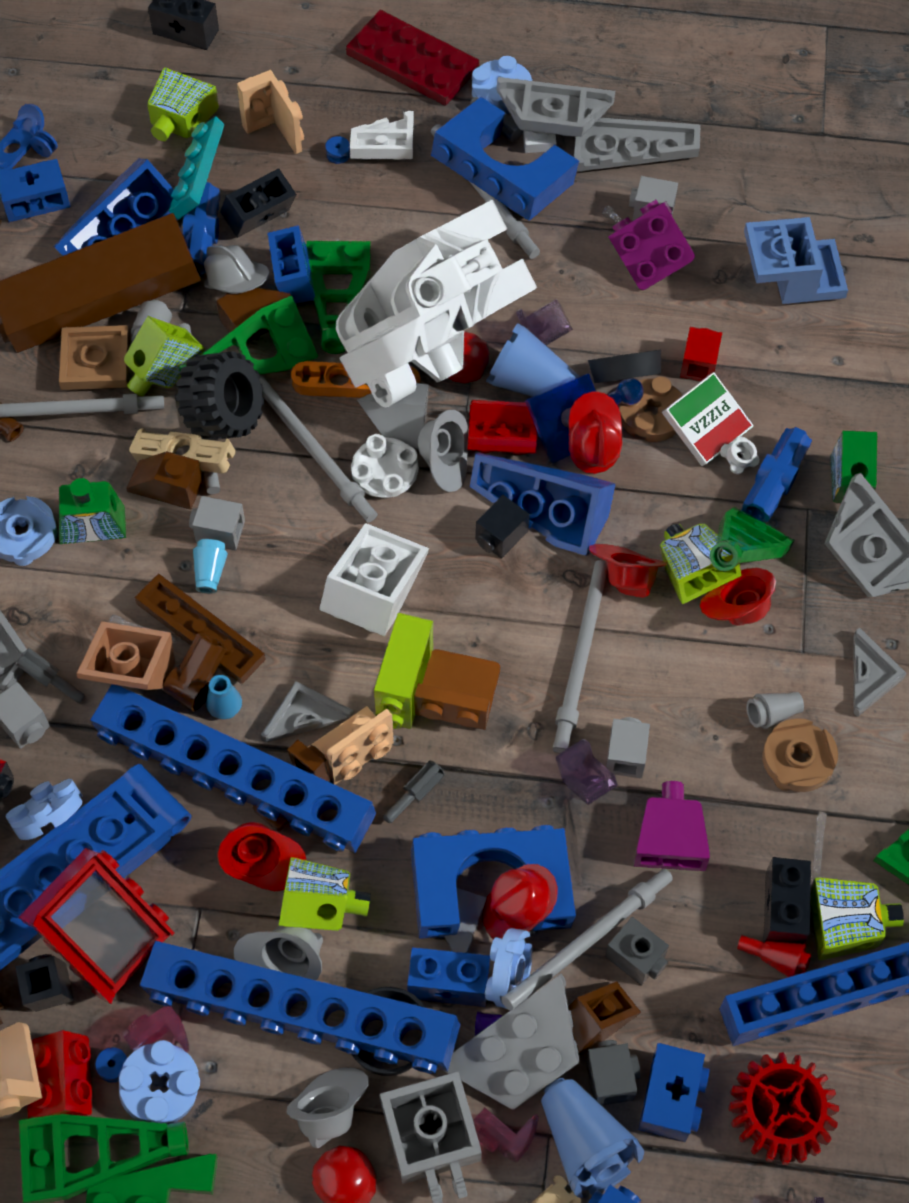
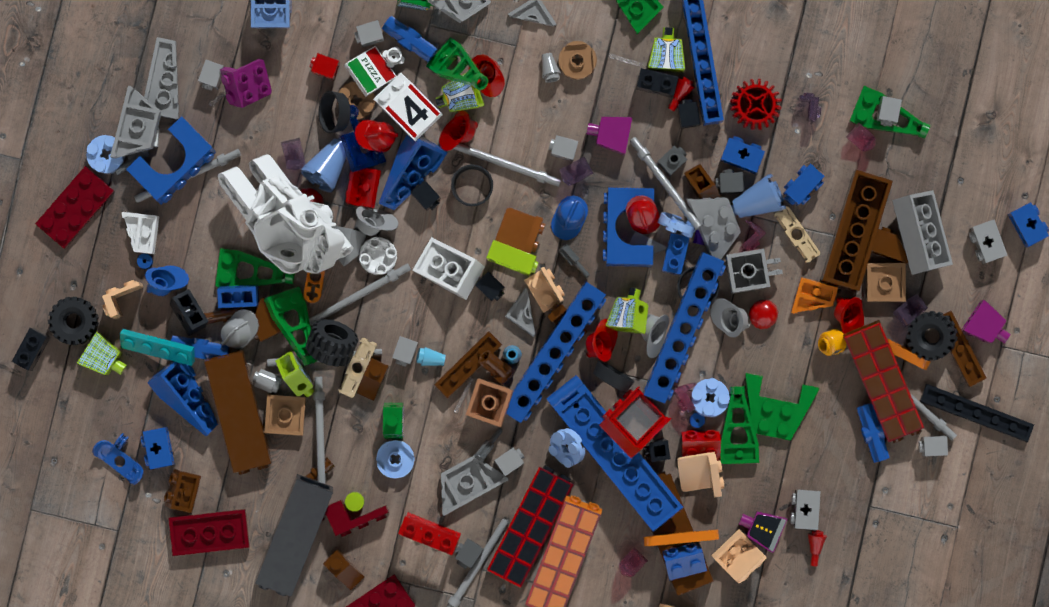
camera: 85 degrees left, 25 degrees up
(191, 900) = (612, 376): none -> black tyre
(229, 50) = (59, 315): none -> black tyre
(258, 251) = (221, 315): none -> reddish brown pin
(308, 167) = (165, 279): none -> blue piece
(347, 648) = (490, 287): none -> black brick
(497, 777) = (569, 217): none -> blue piece
(536, 571) = (470, 167): none -> black tyre
(657, 471) = (407, 107): none -> white slope
(735, 971) = (688, 114): none -> black brick
(772, 412) = (369, 34): none -> light grey brick

